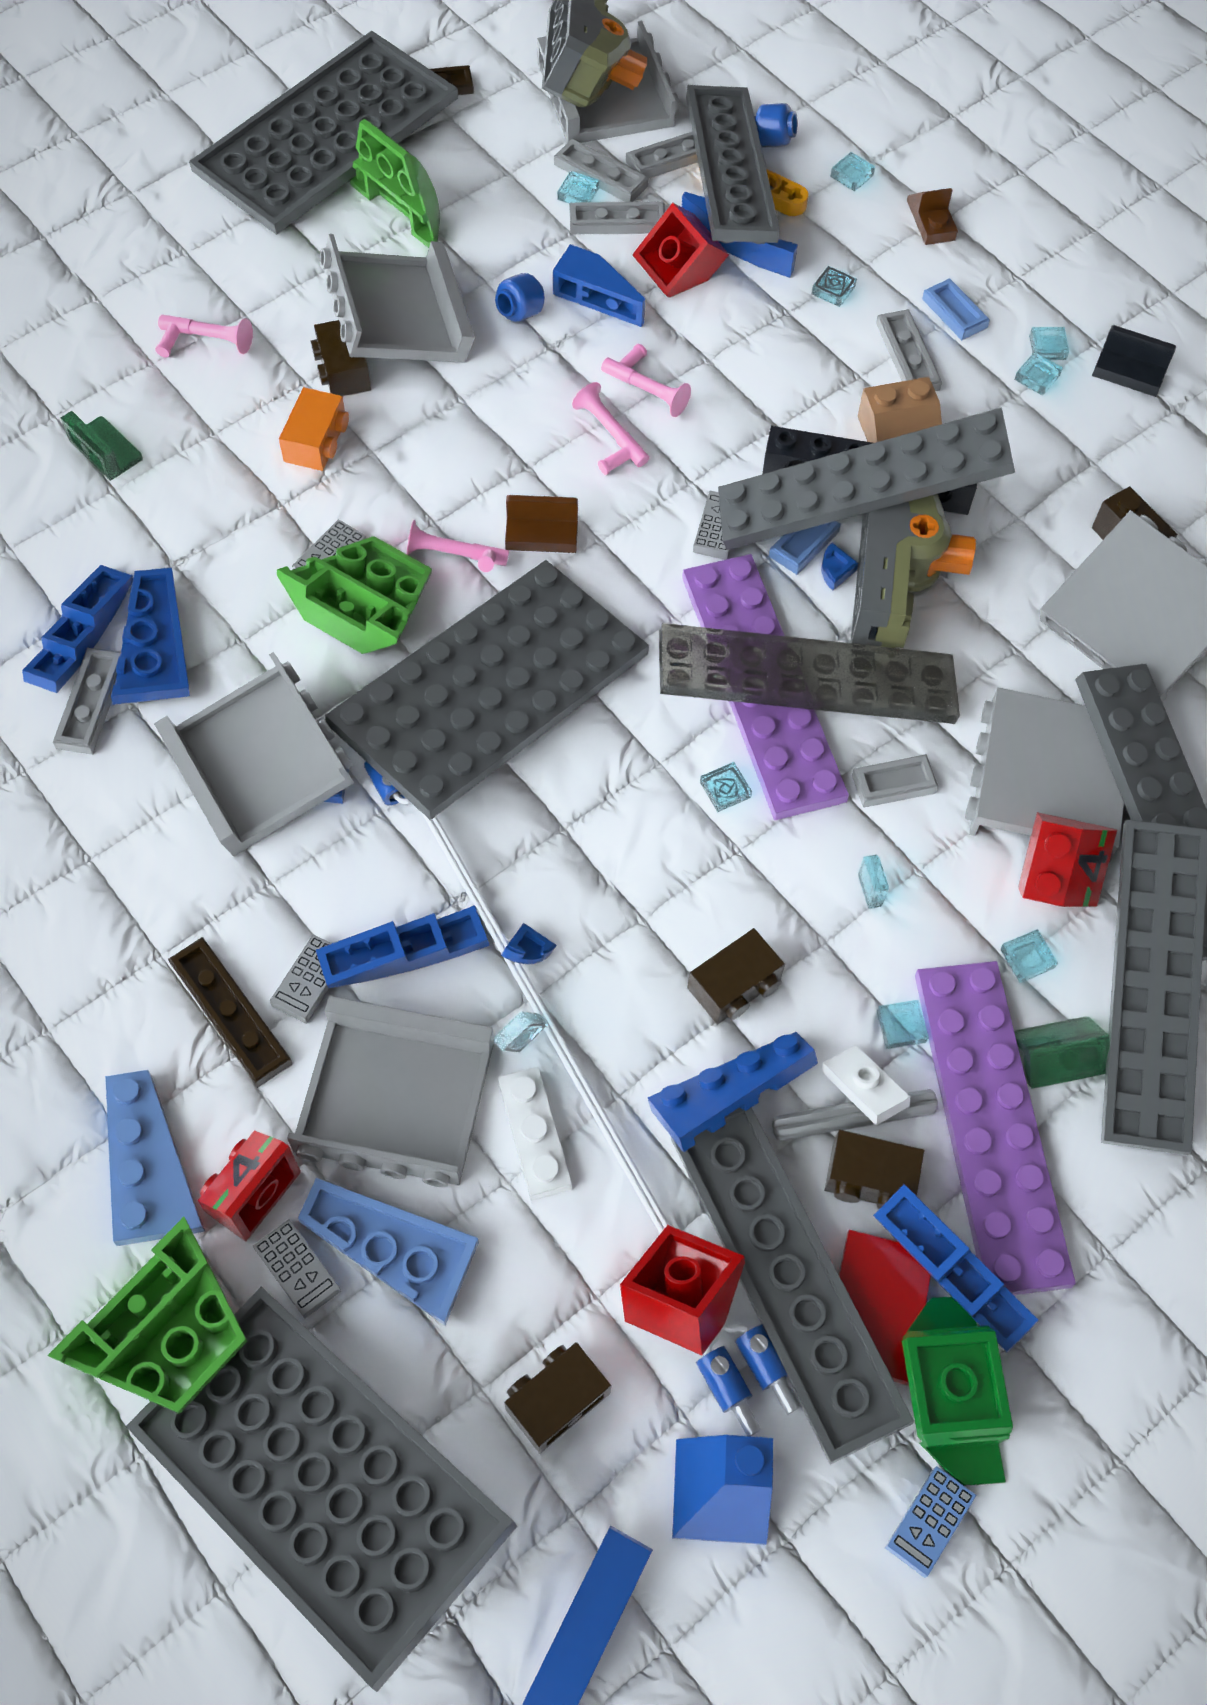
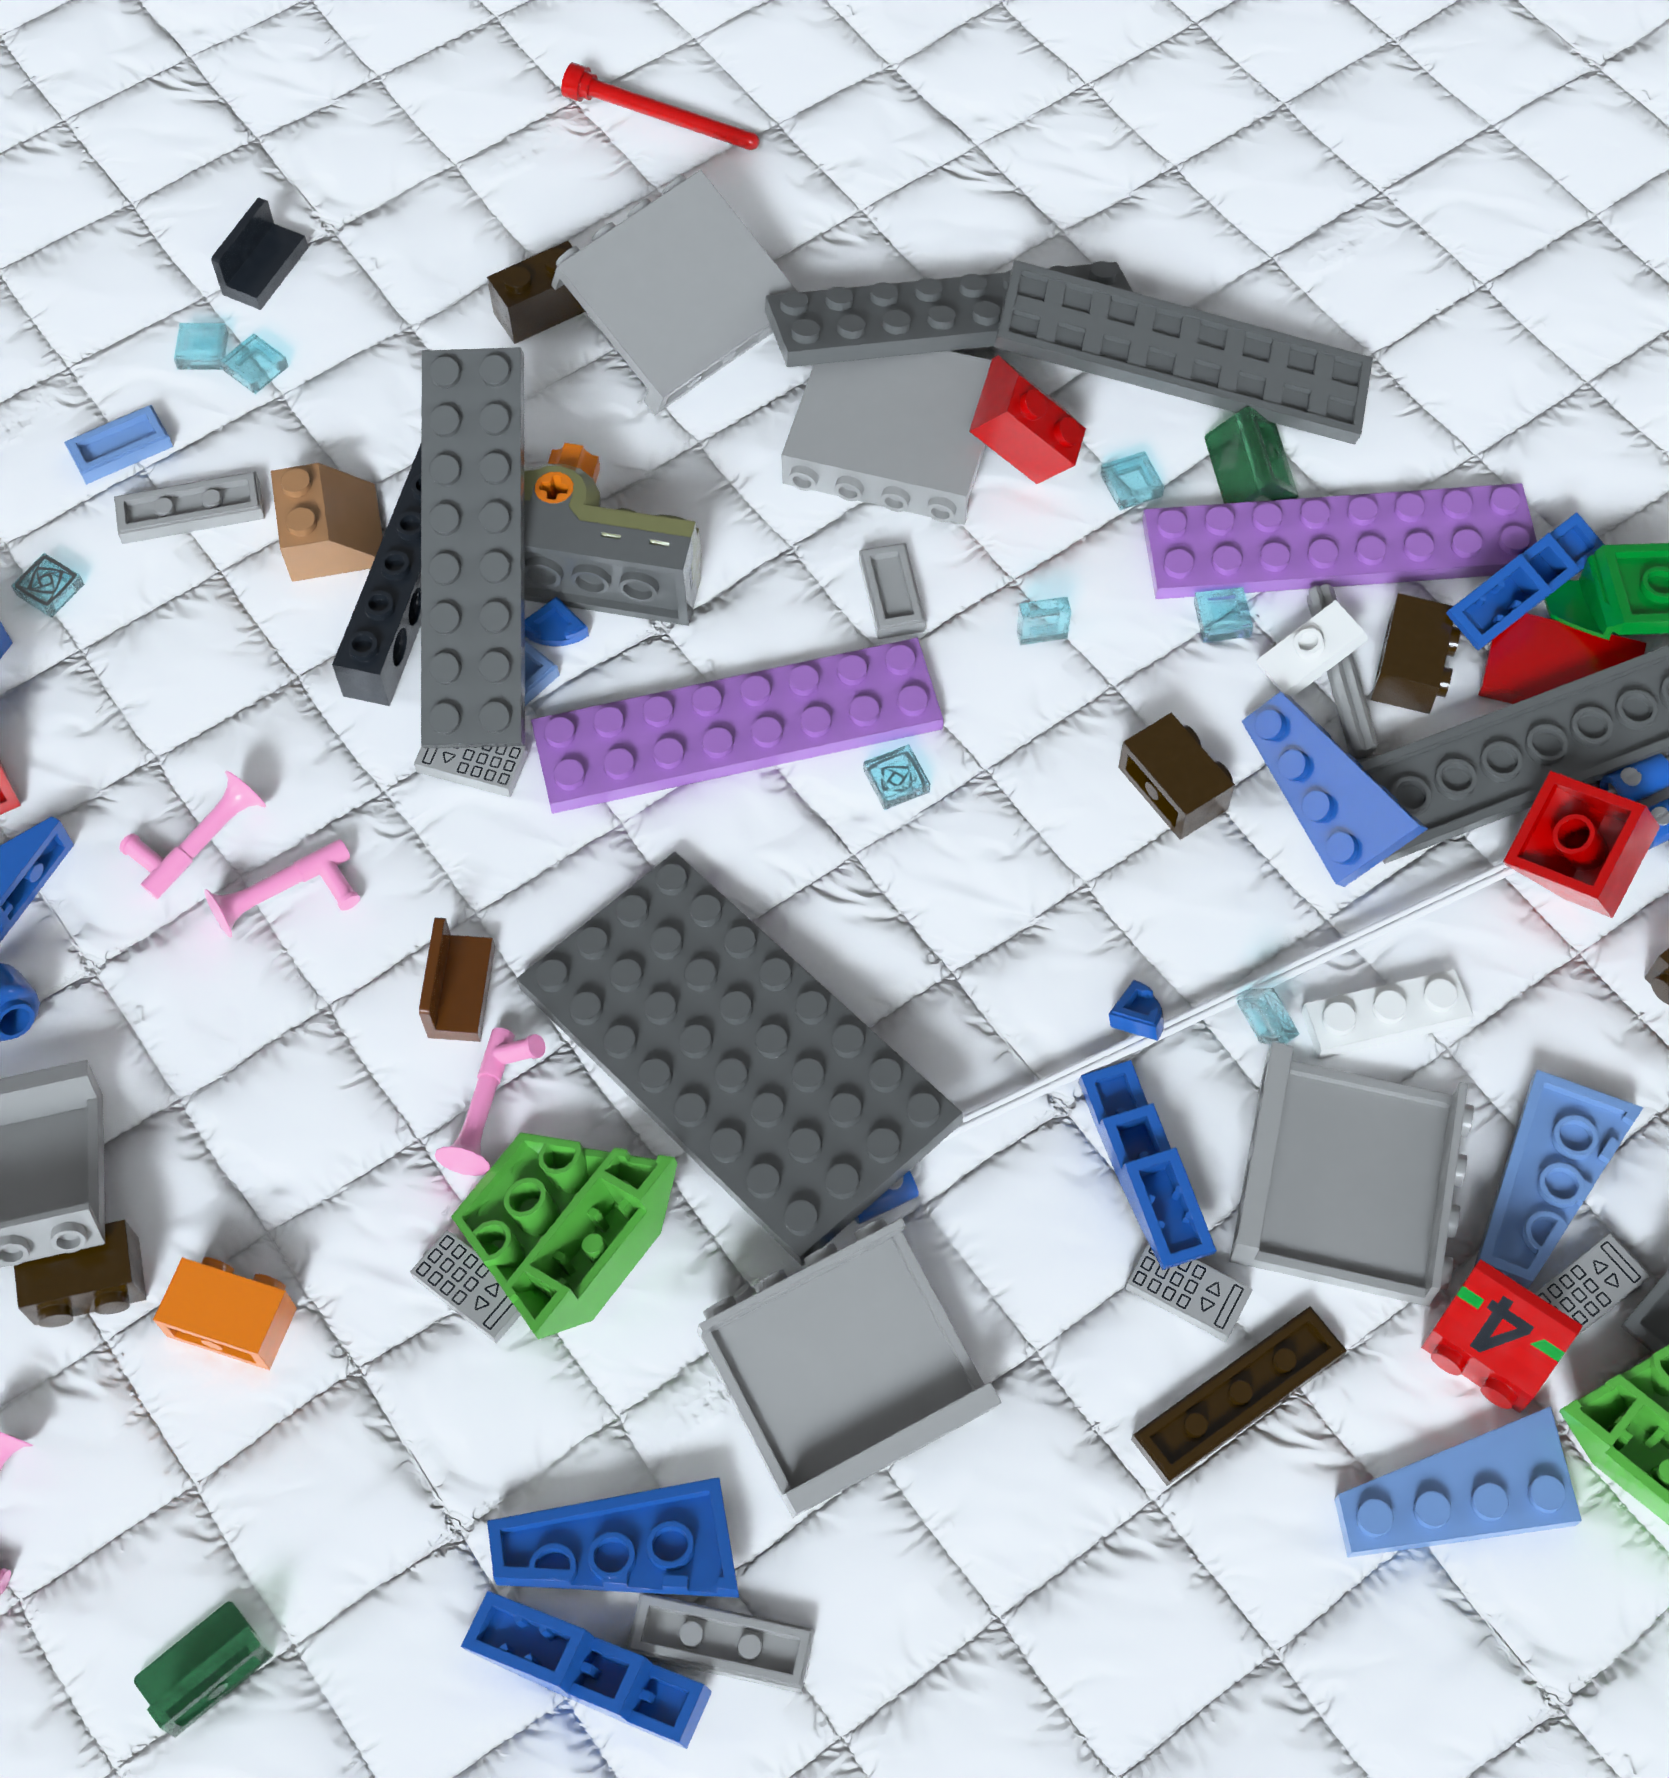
camera: 85 degrees left, 0 degrees up
(807, 673) = (748, 664): clear smoke plate -> none

